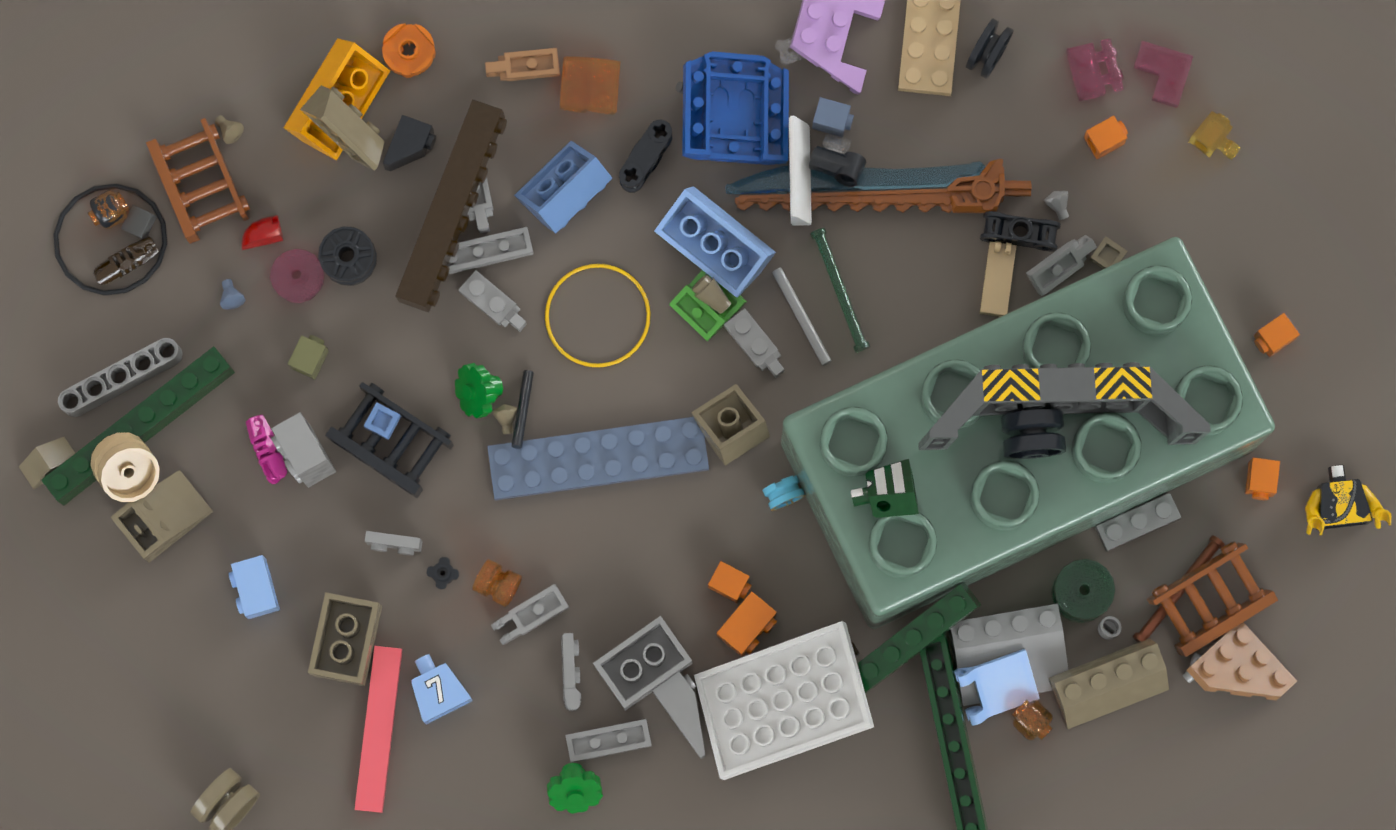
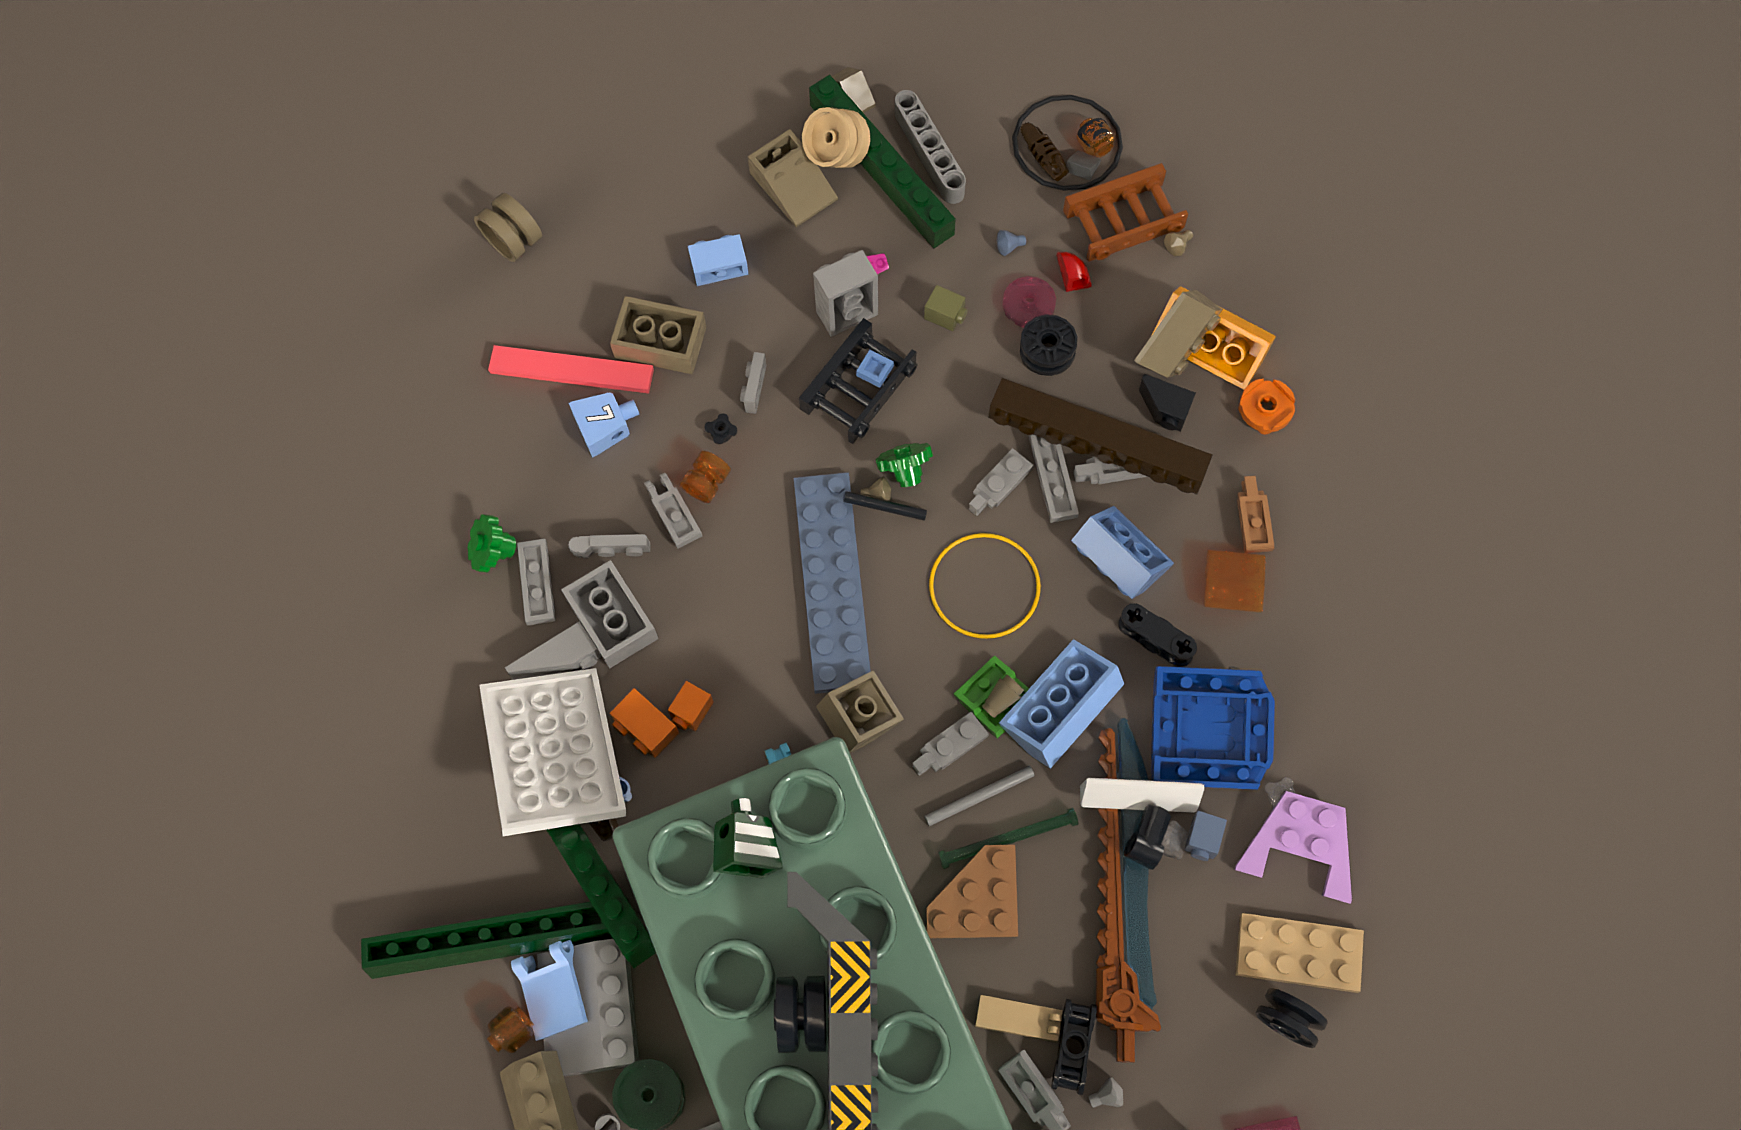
camera: 90 degrees right, 10 degrees down
(895, 313) = (979, 898): none -> medium nougat plate

